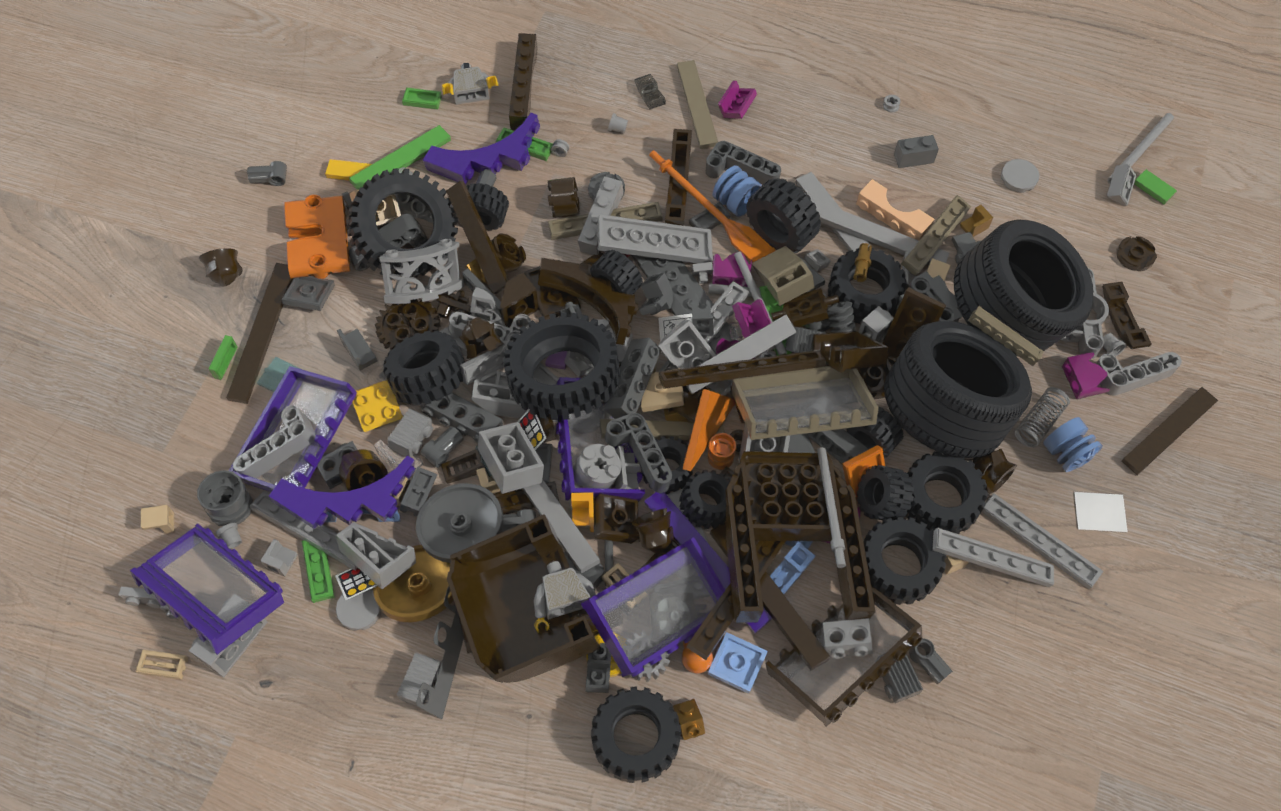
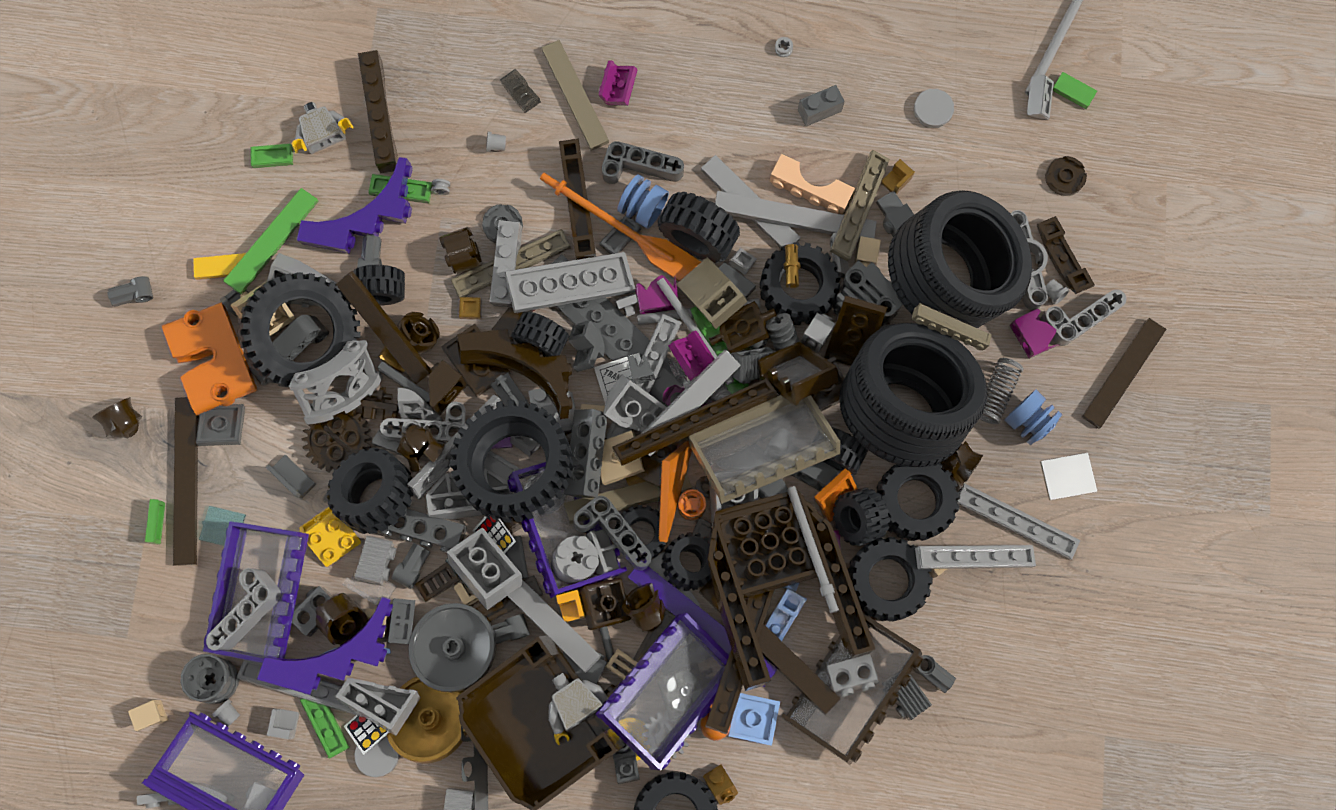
camera: 15 degrees left, 15 degrees up
(558, 247) = (470, 308): none -> pearl gold tile

